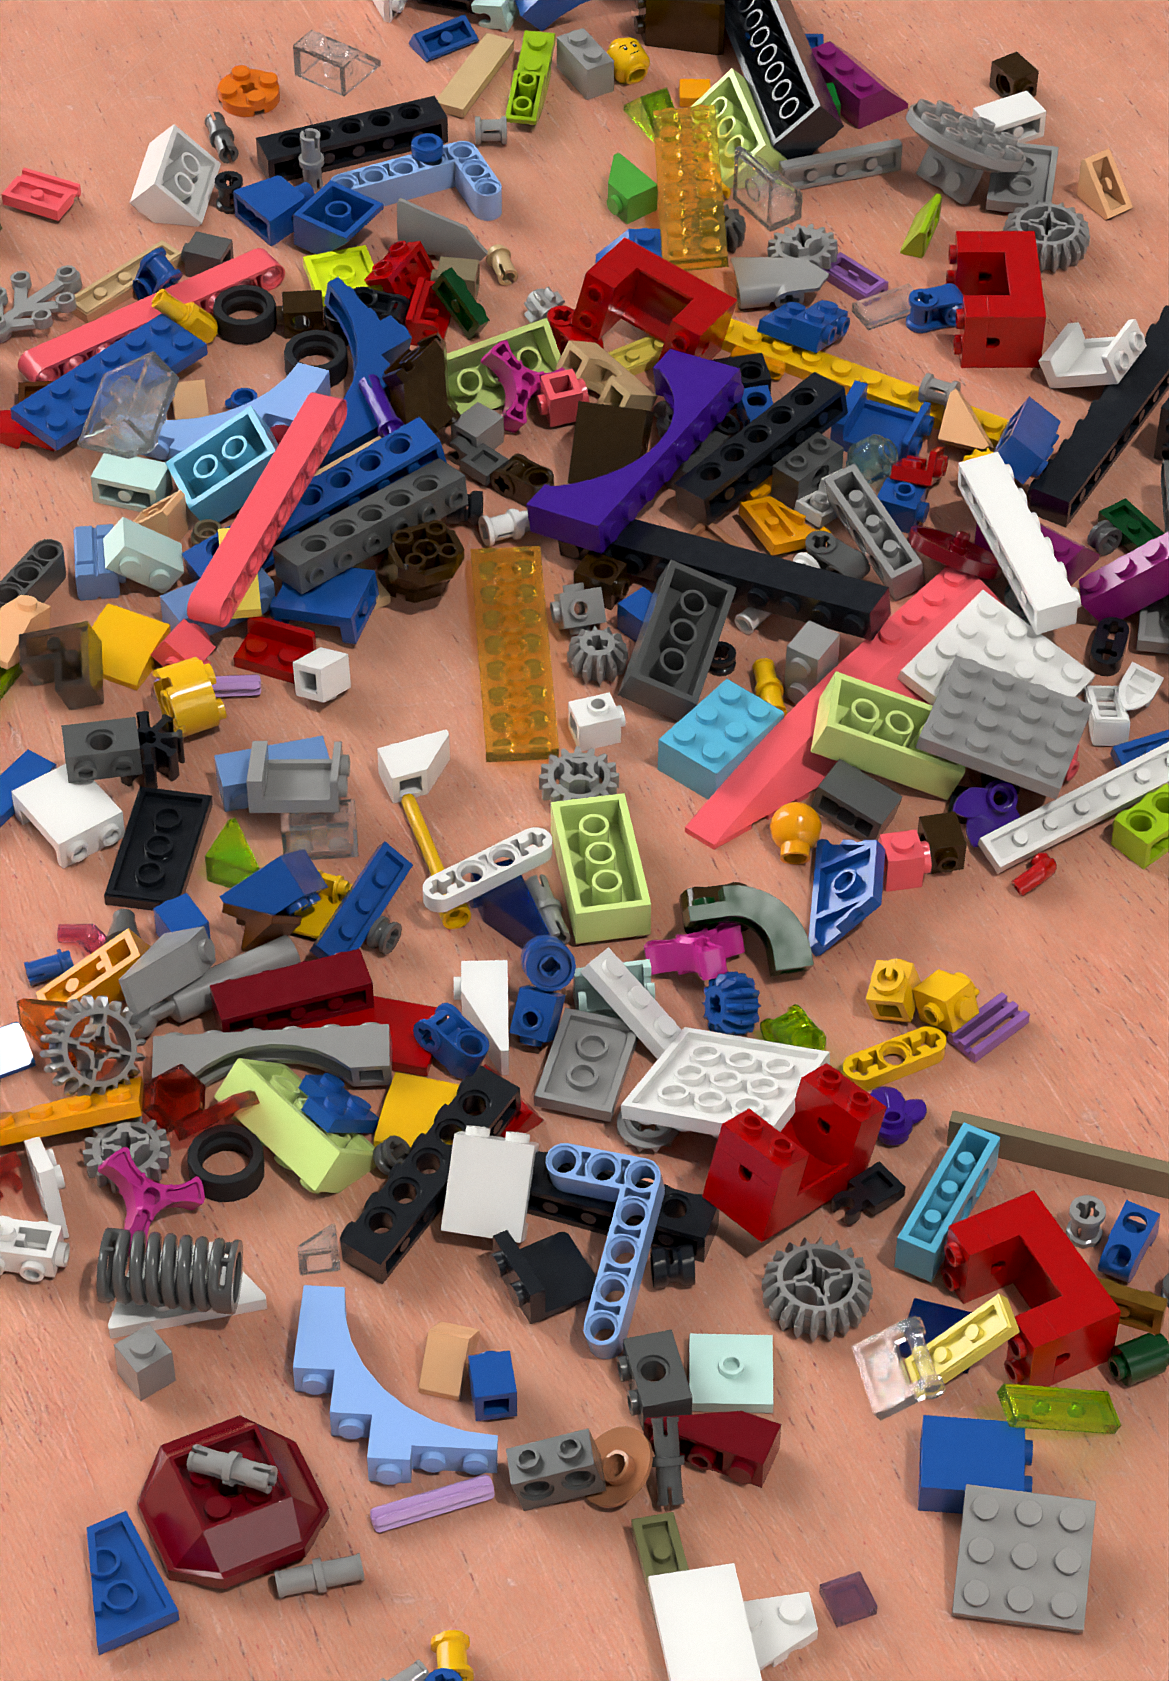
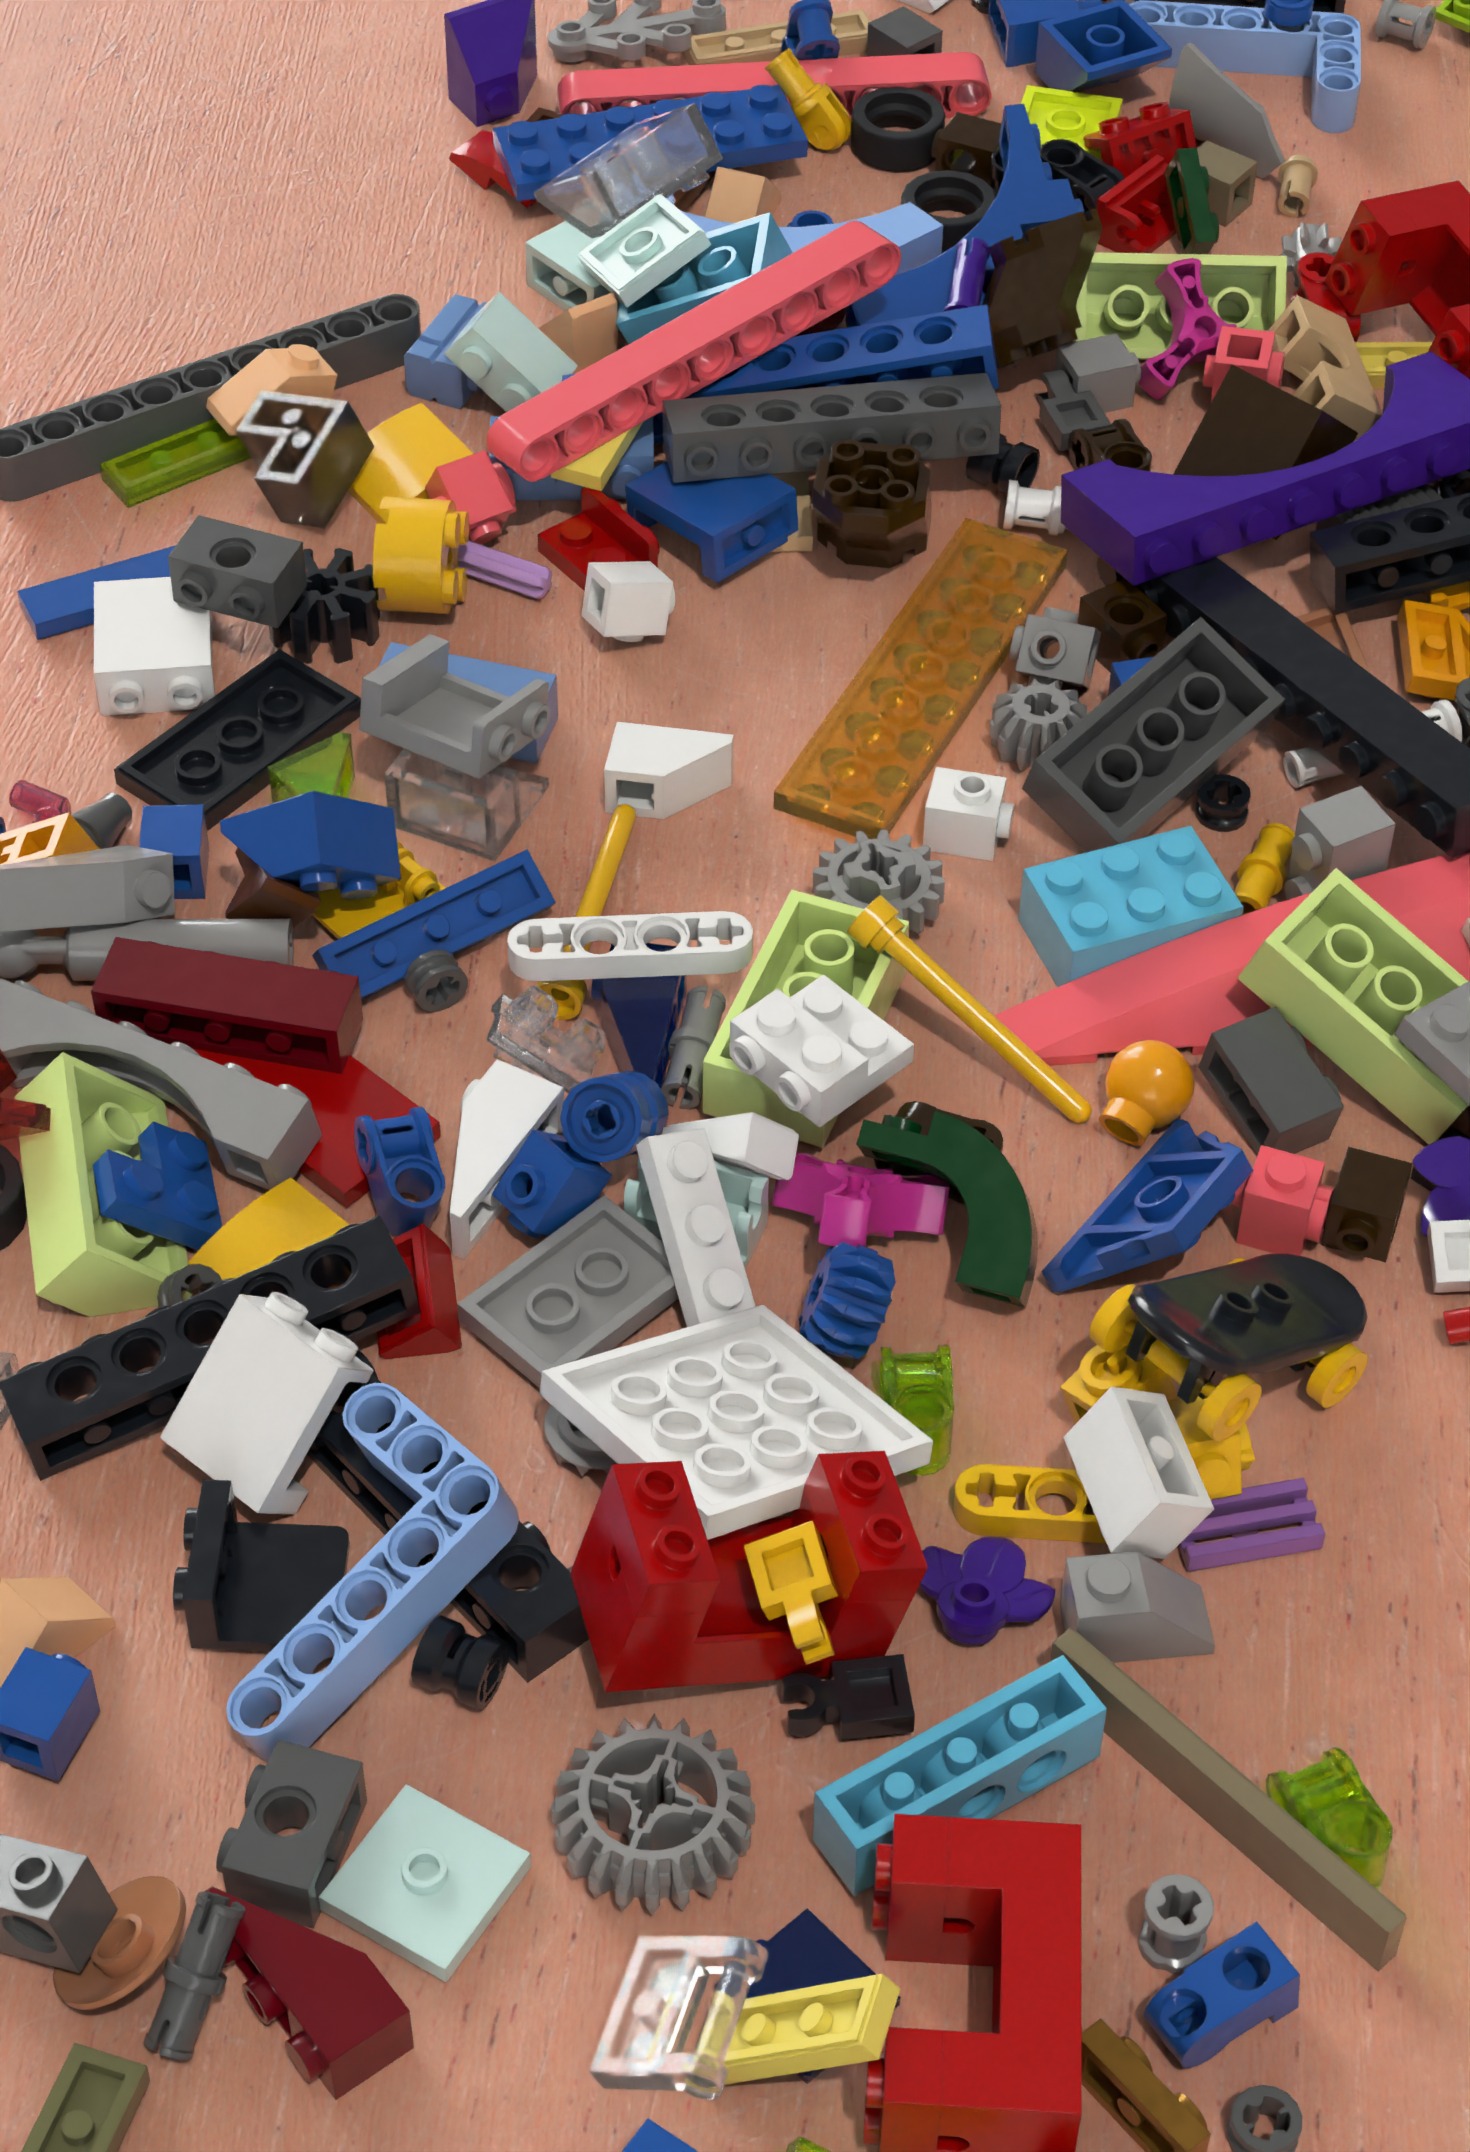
camera: 30 degrees right, 0 degrees up
(181, 456) = (644, 250): none -> light aqua plate
(470, 945) = (531, 1043): none -> clear hips
(617, 803) = (881, 929): none -> yellow piece
(628, 946) = (748, 1143): none -> white slope
(633, 880) = (817, 1048): none -> white plate
(825, 1146) = (791, 1580): none -> yellow plate
(936, 1022) = (1138, 1473): none -> white brick
(941, 920) = (1240, 1321): none -> black piece
(965, 1089) = (1134, 1608): none -> light grey slope
(1123, 1134) = (1338, 1811): none -> clear neon green piece

